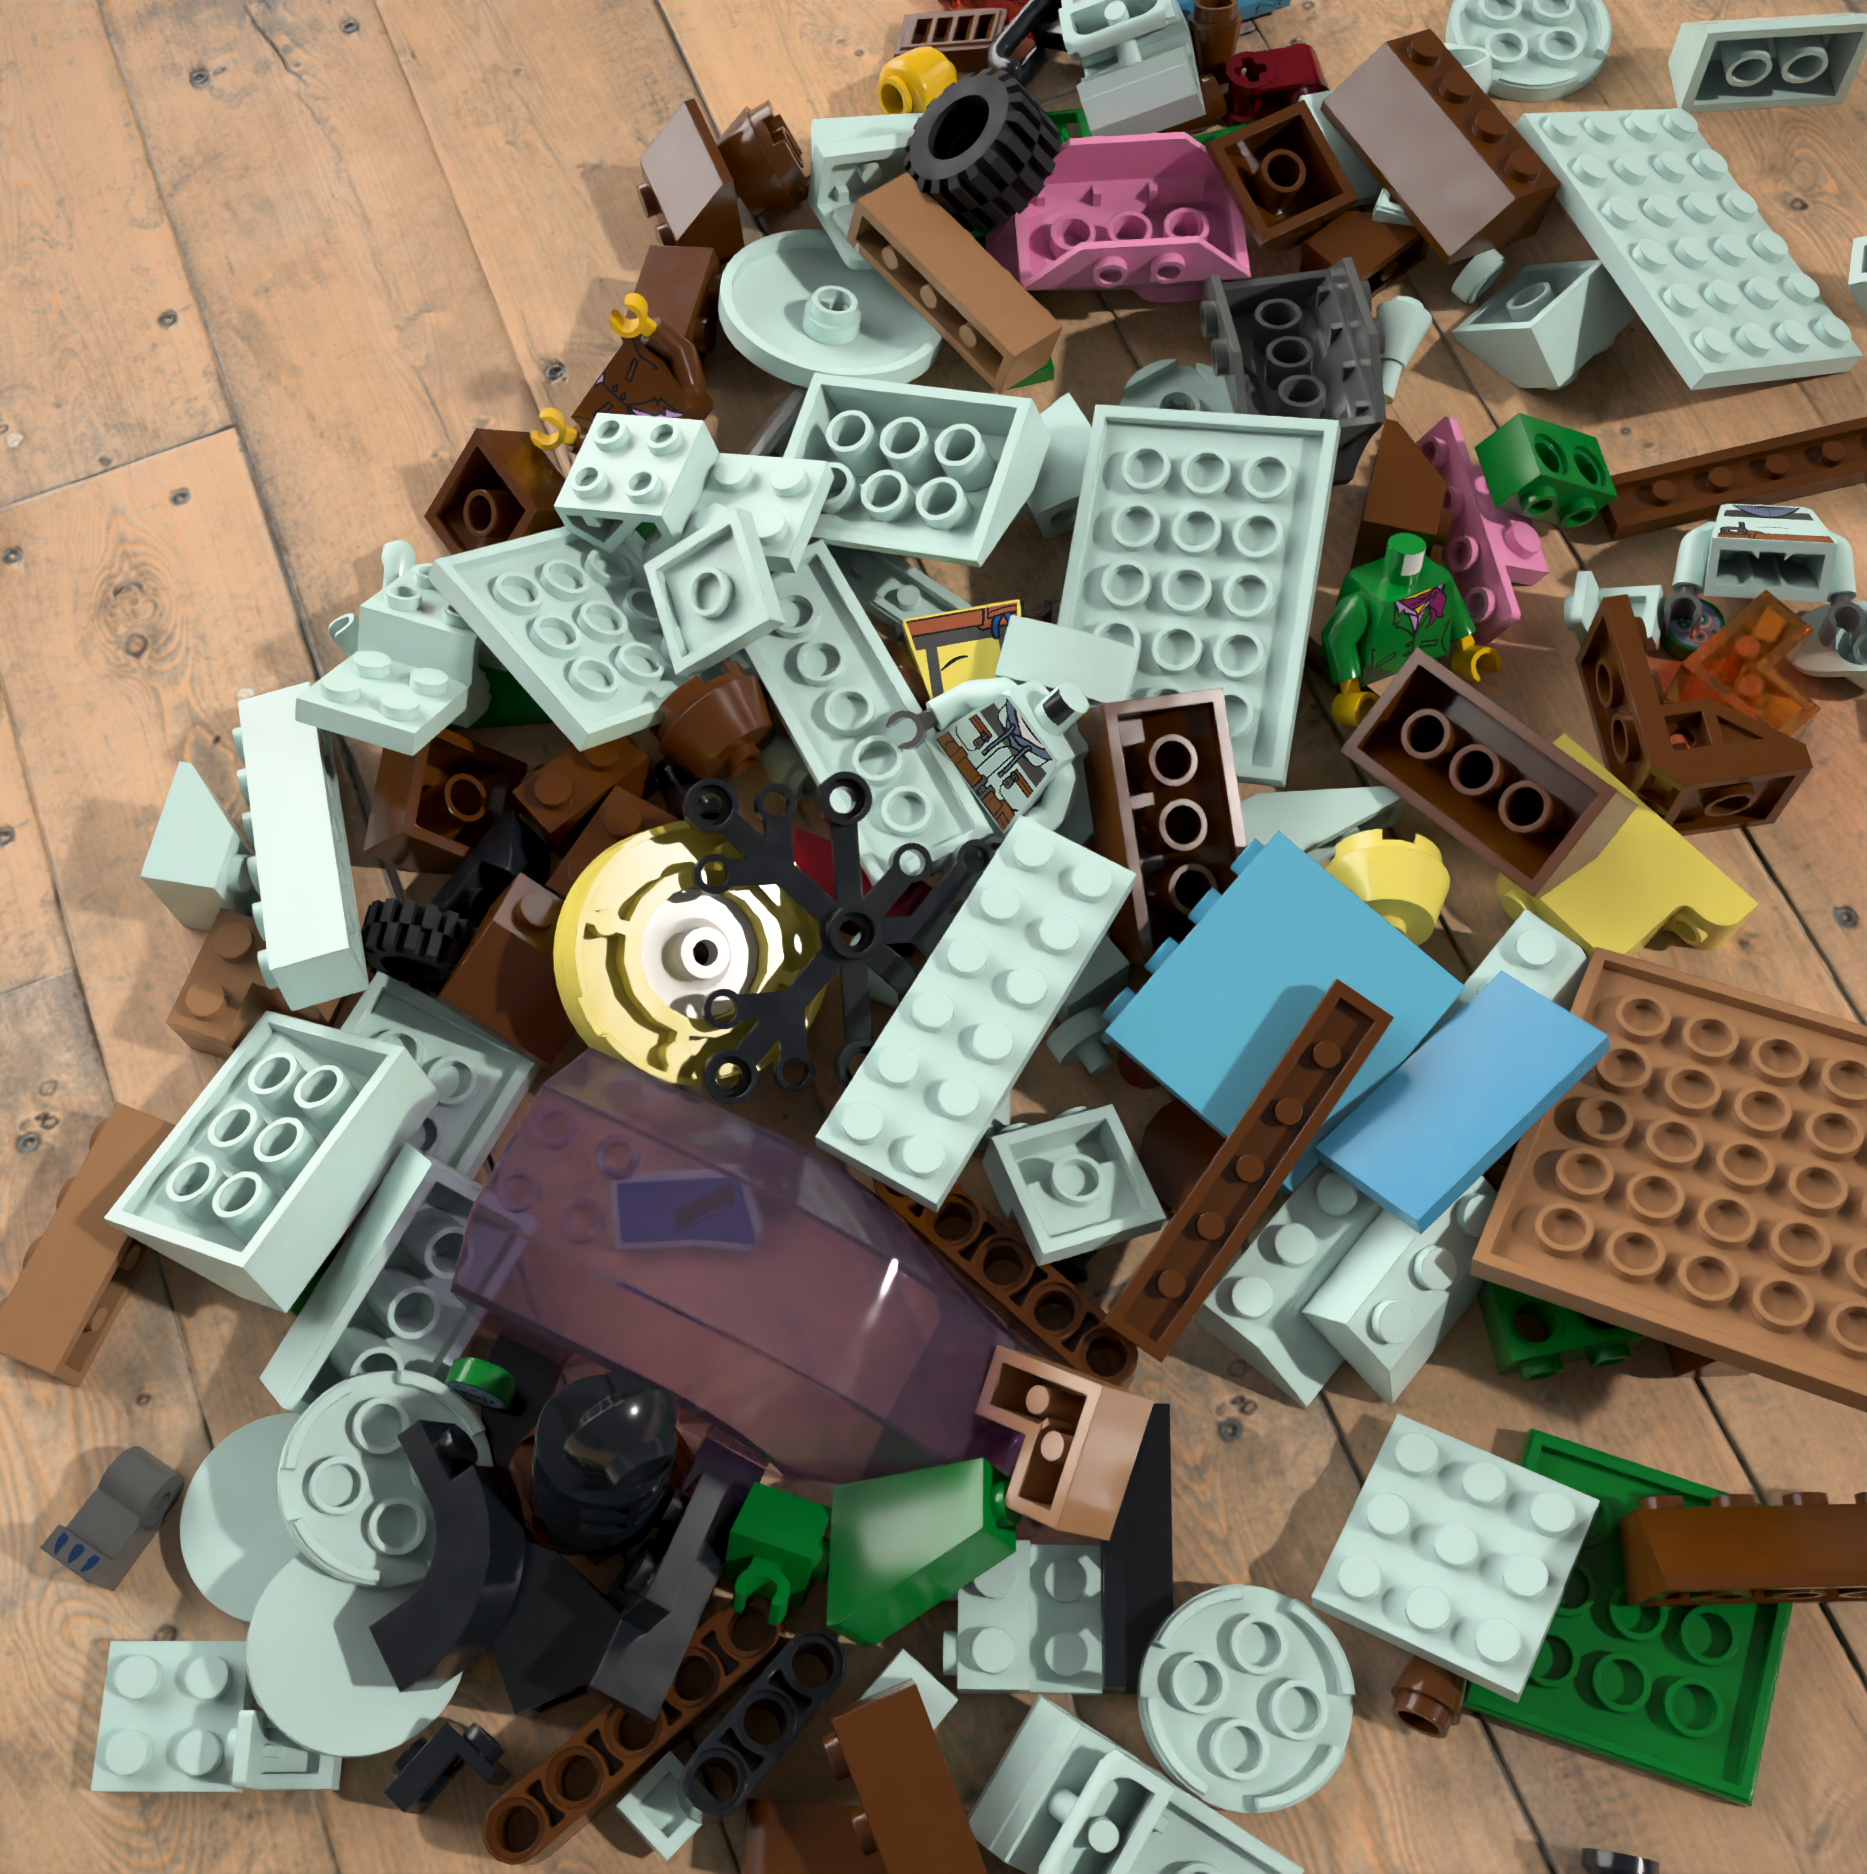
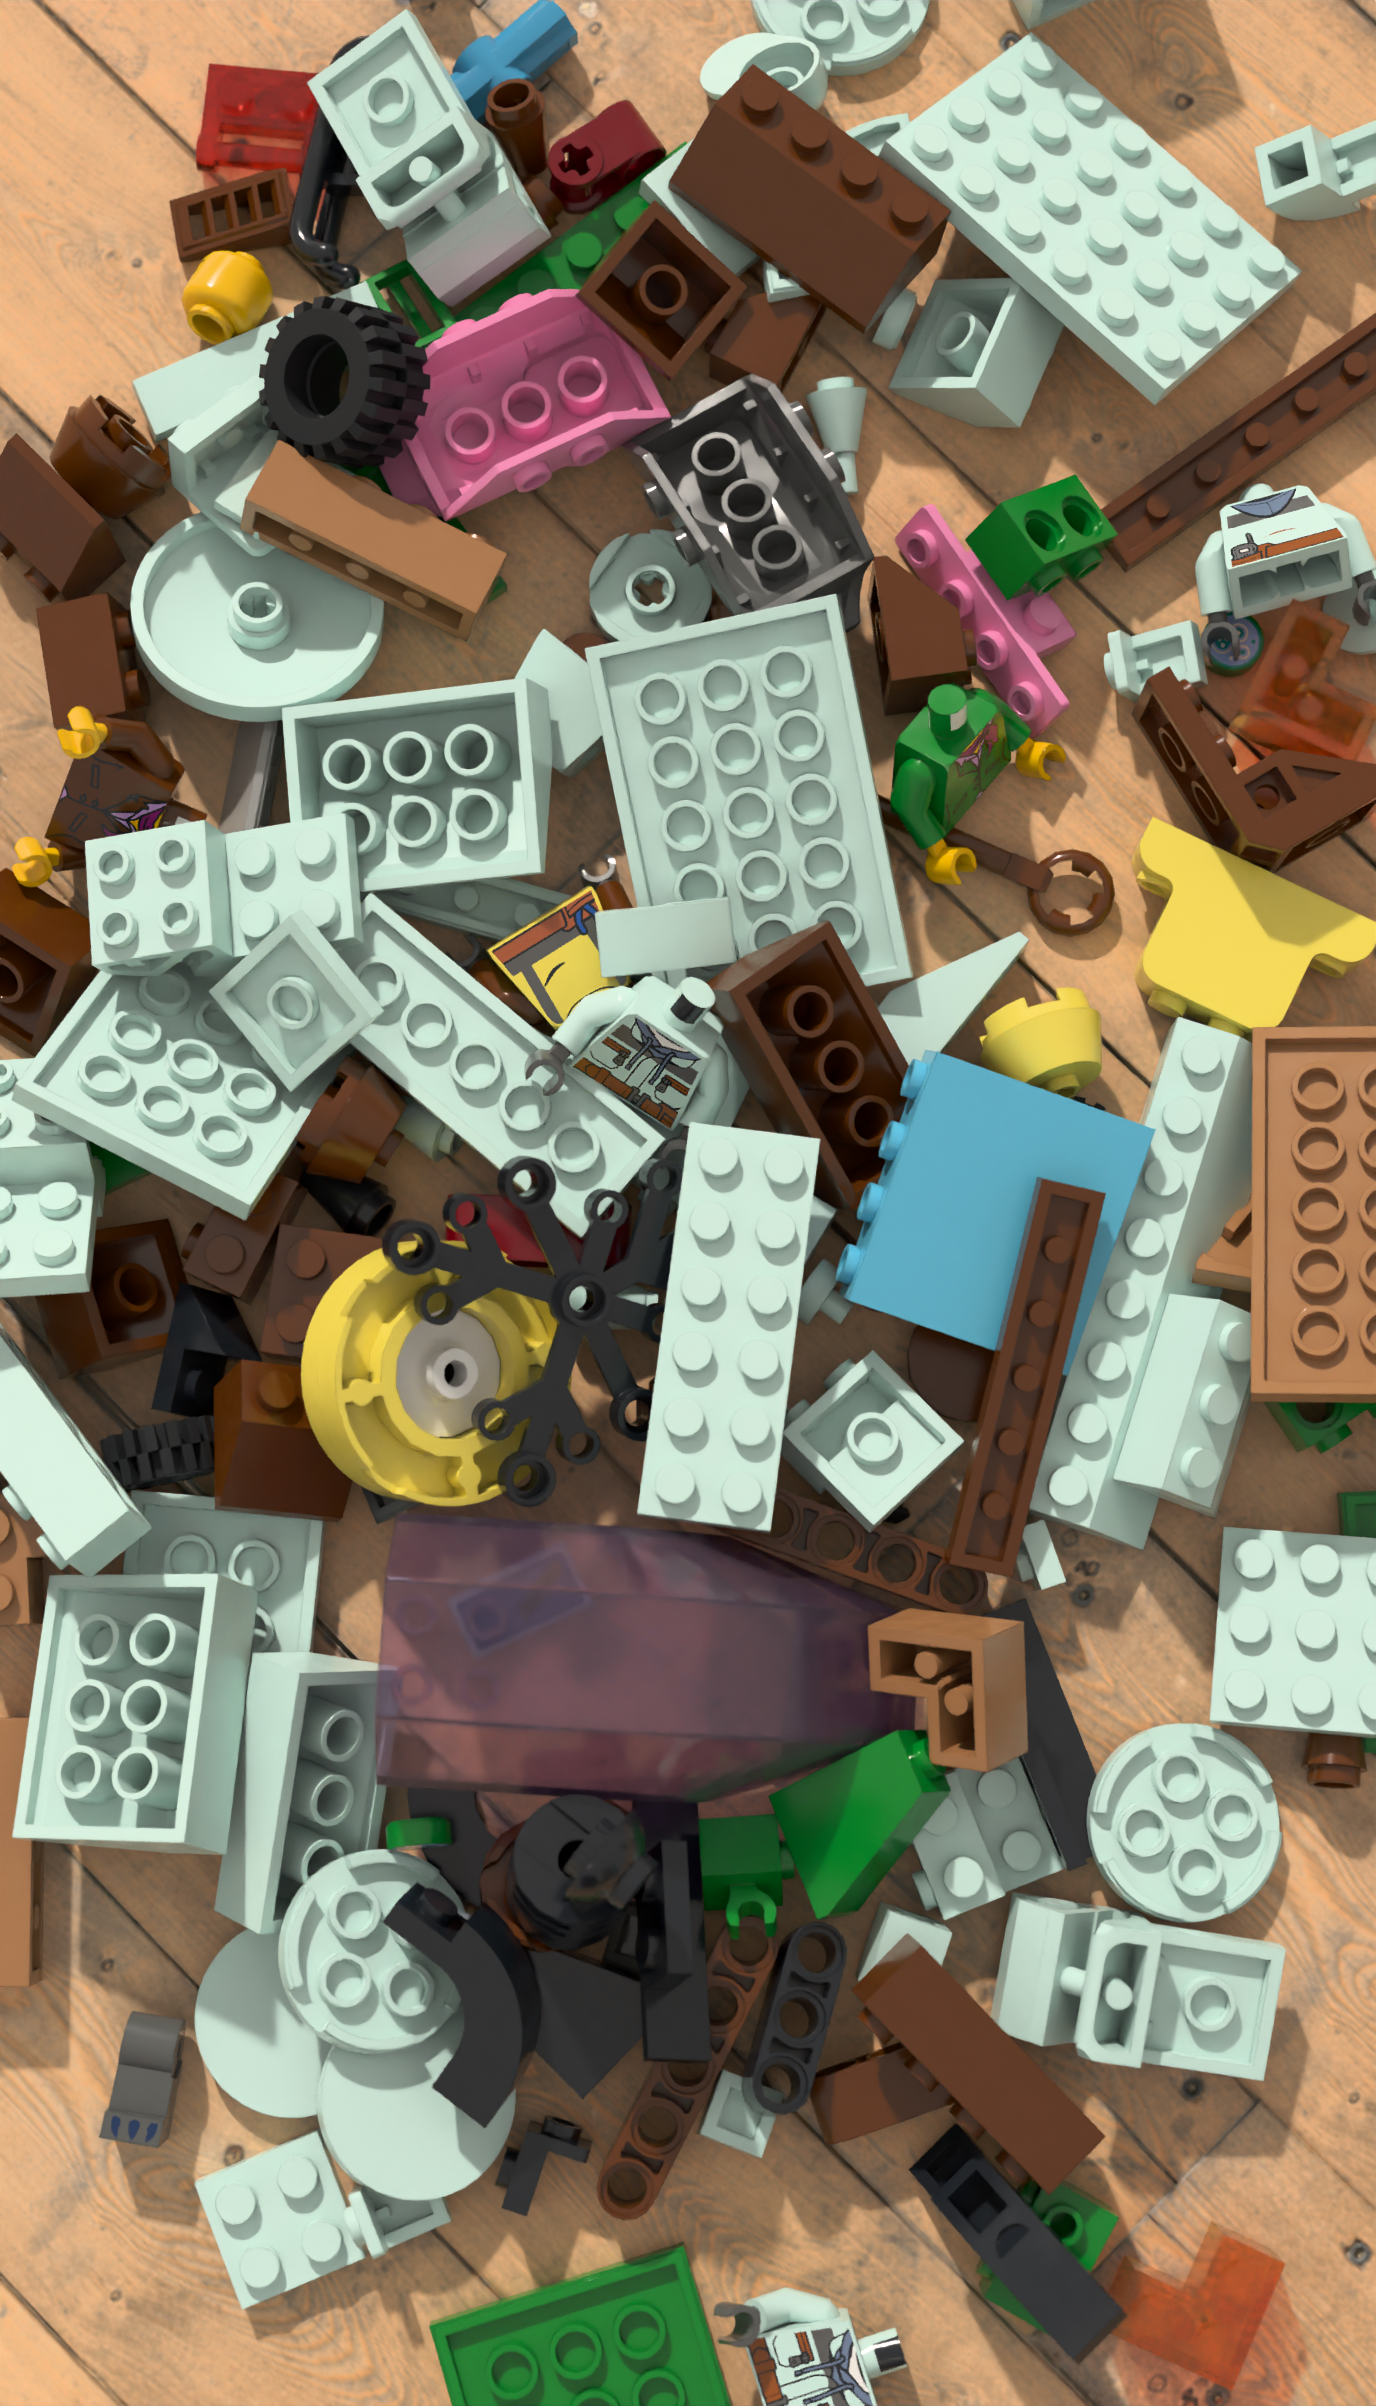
camera: 25 degrees left, 15 degrees up
(1195, 1365) = (1038, 1558): none -> light aqua plate
(1462, 1100) = (1189, 1239): dark azure tile -> none
(1486, 777) = (1098, 899): reddish brown slope -> none

